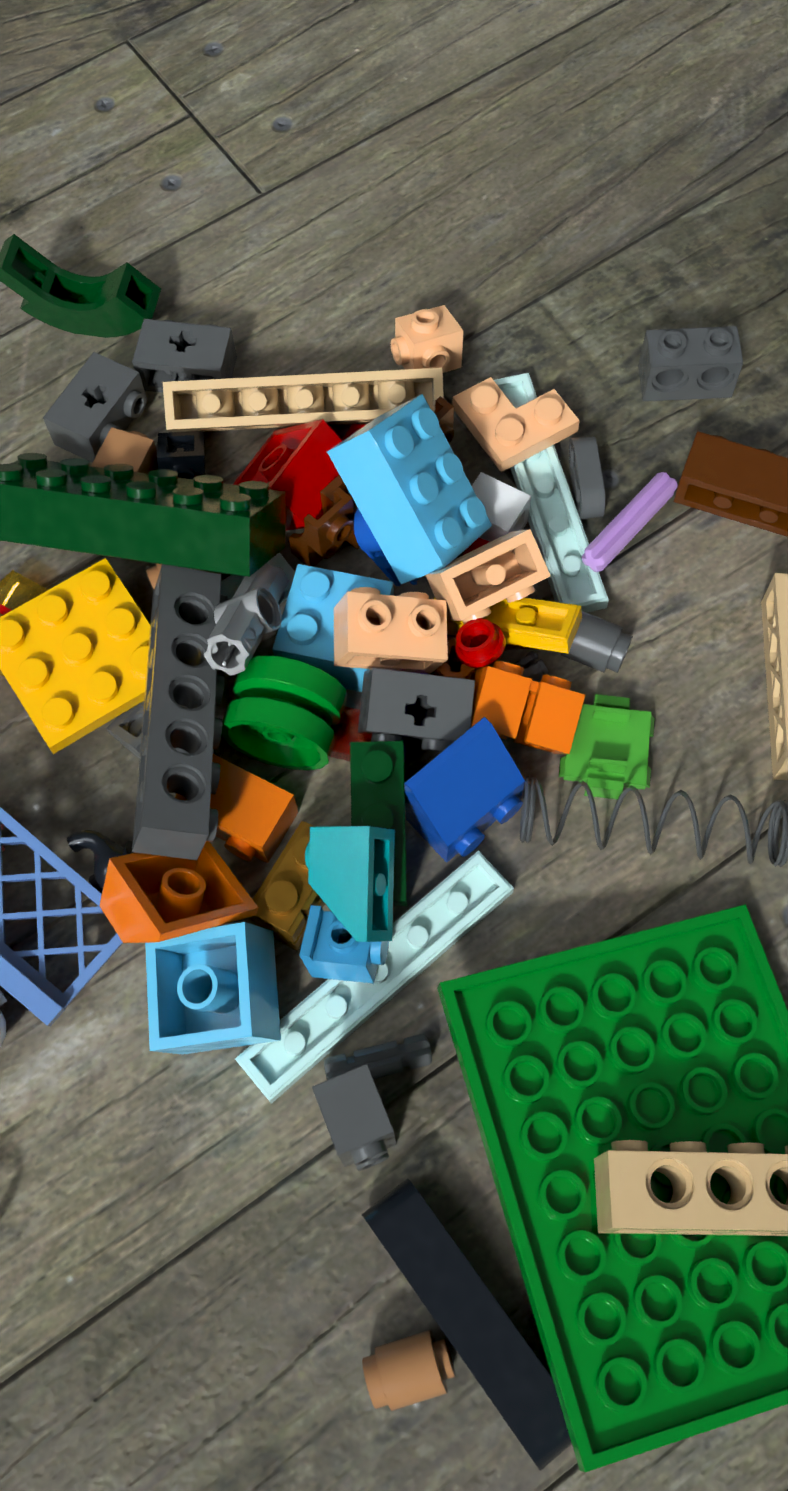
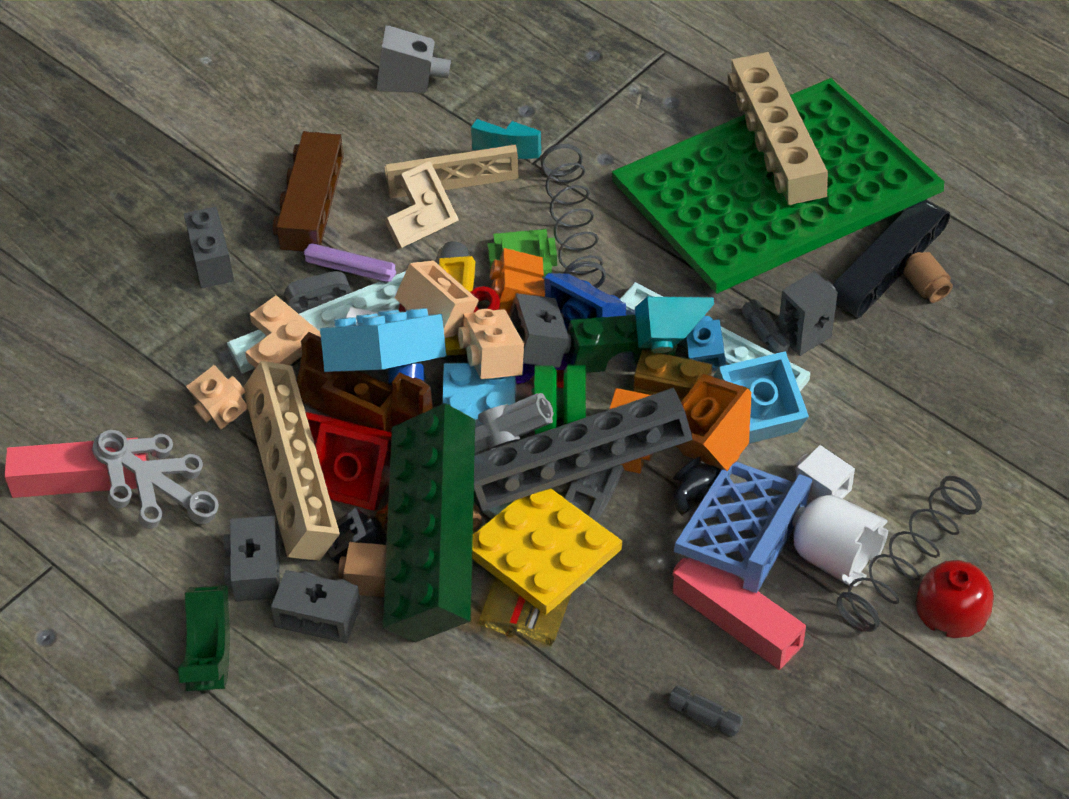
camera: 105 degrees left, 15 degrees down
(65, 1053) = (828, 473): none -> white brick
(323, 261) = (151, 474): none -> light grey plant
(372, 208) = (59, 470): none -> coral brick
(711, 630) = (429, 207): none -> tan plate

